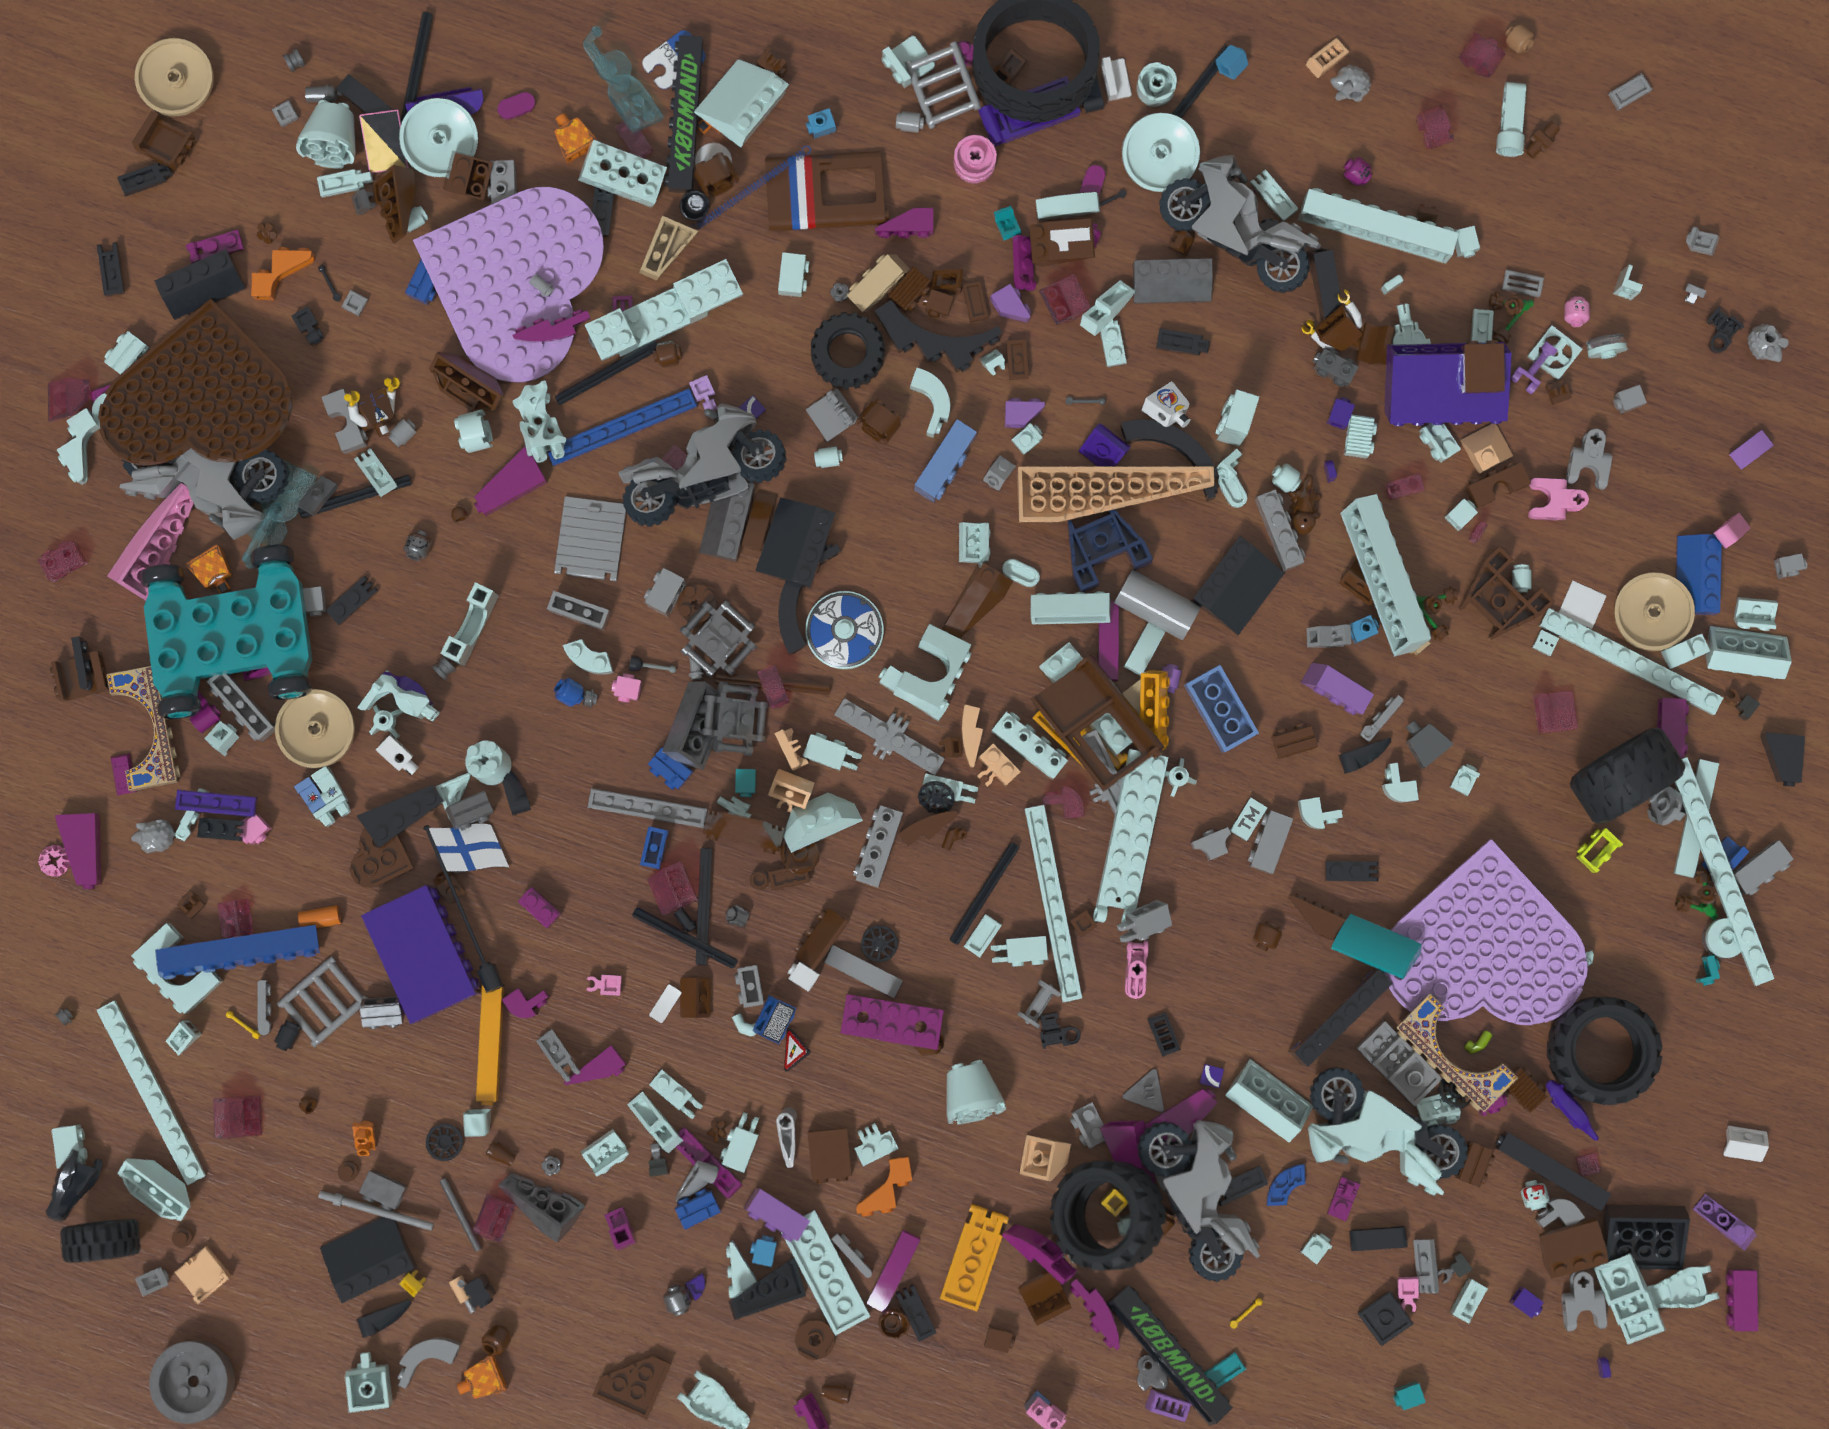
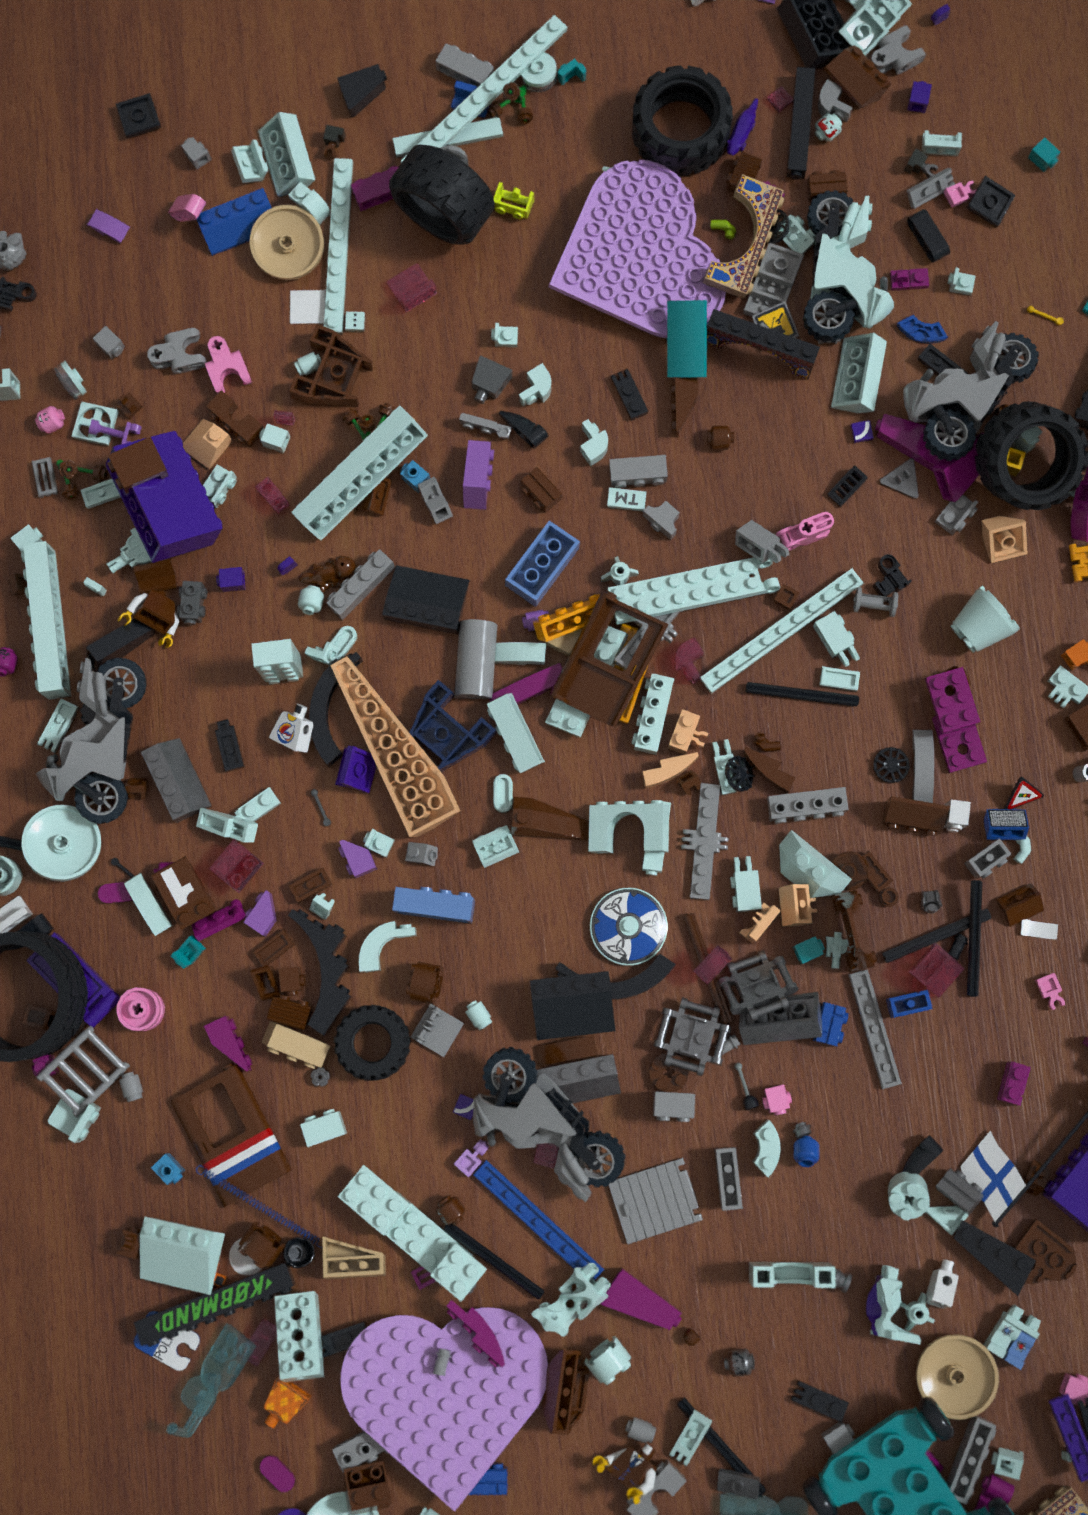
camera: 105 degrees left, 5 degrees down
(1356, 1044) = (777, 319): none -> piece
(1359, 436) = (245, 553): light aqua brick -> none

